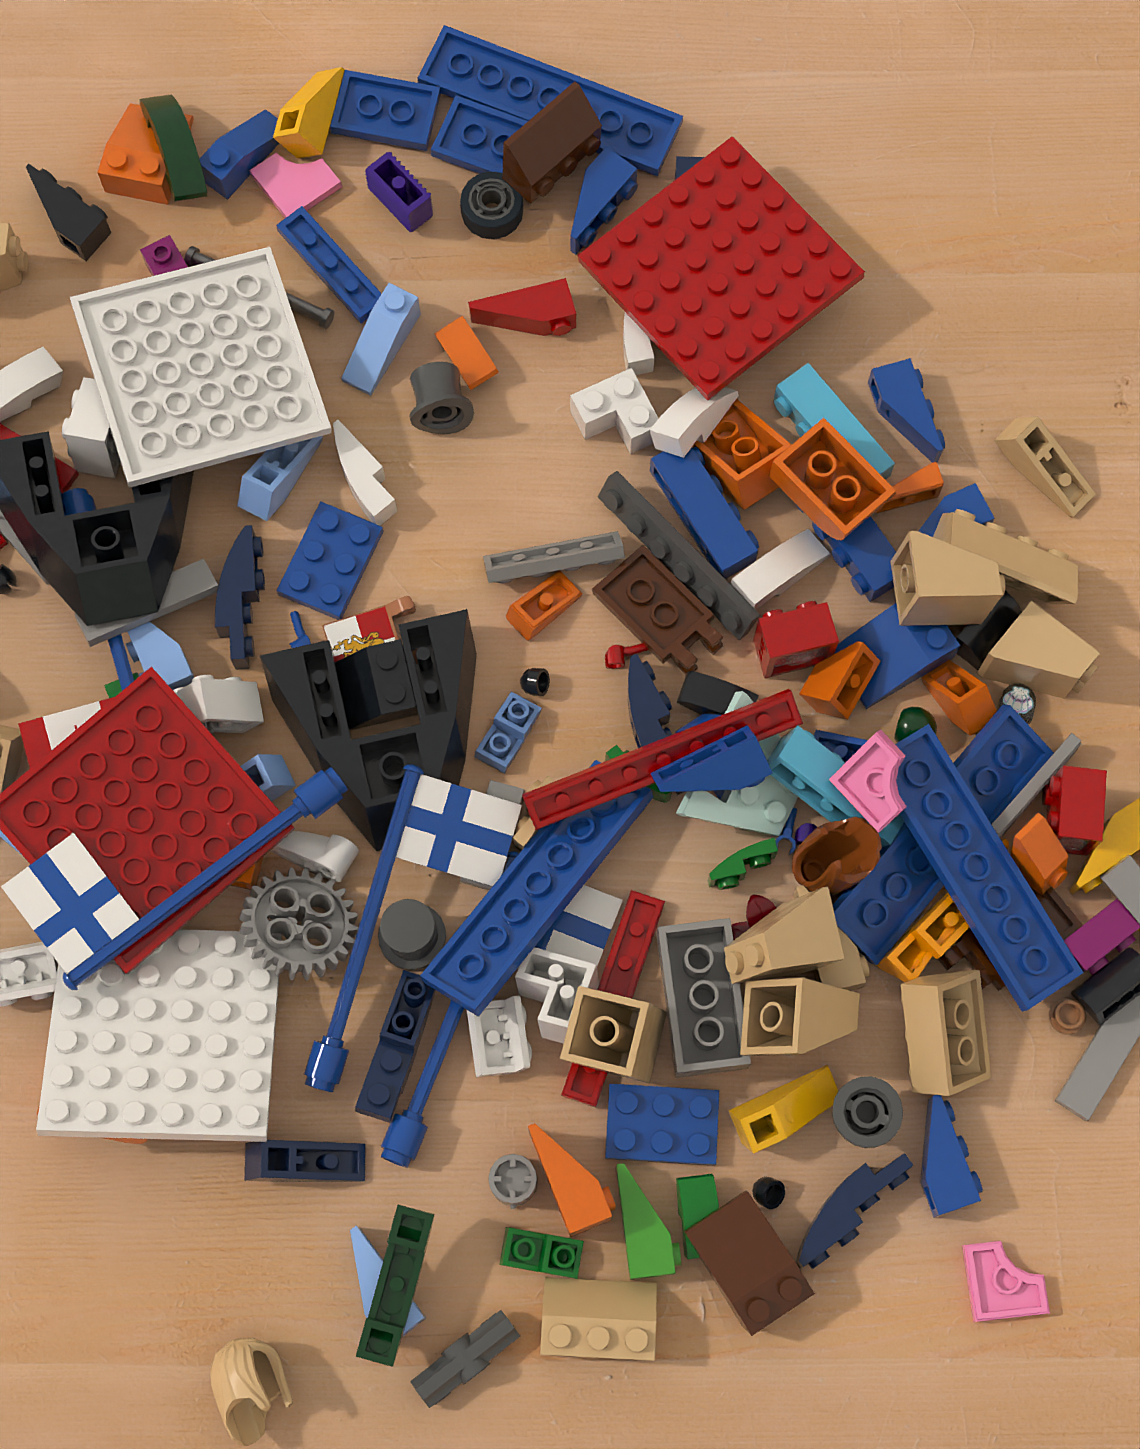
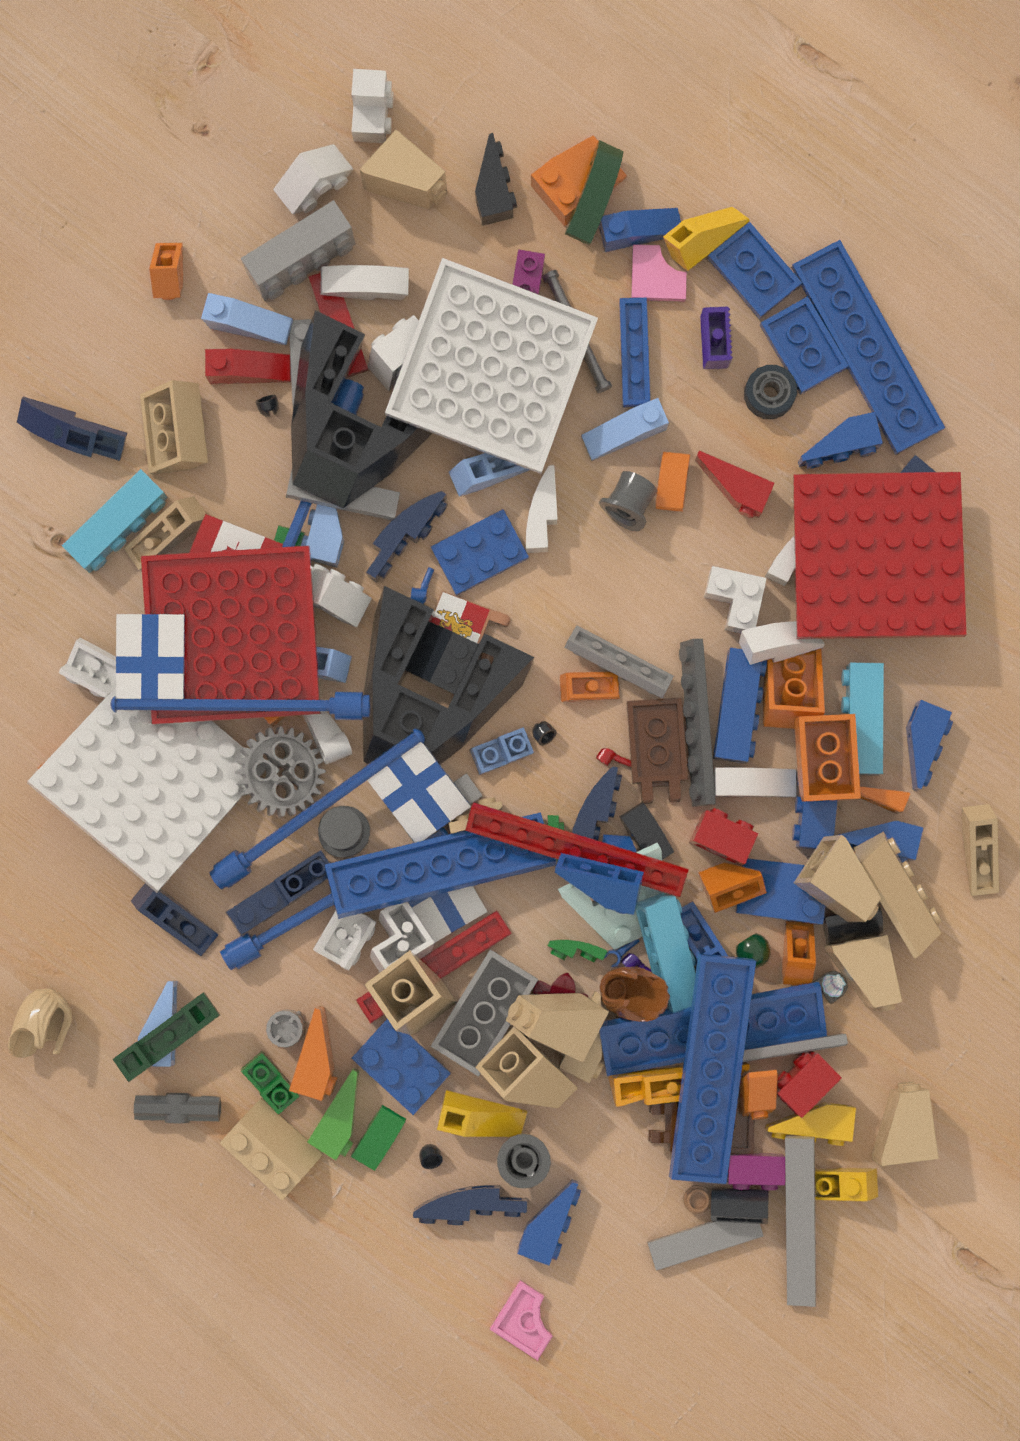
camera: 40 degrees right, 10 degrees up
(551, 144) = (837, 386): reddish brown slope -> none
(749, 1263) = (383, 1189): reddish brown slope -> none
(870, 781) = (688, 969): bright pink tile -> none
(945, 1032) = (612, 1151): tan slope -> none

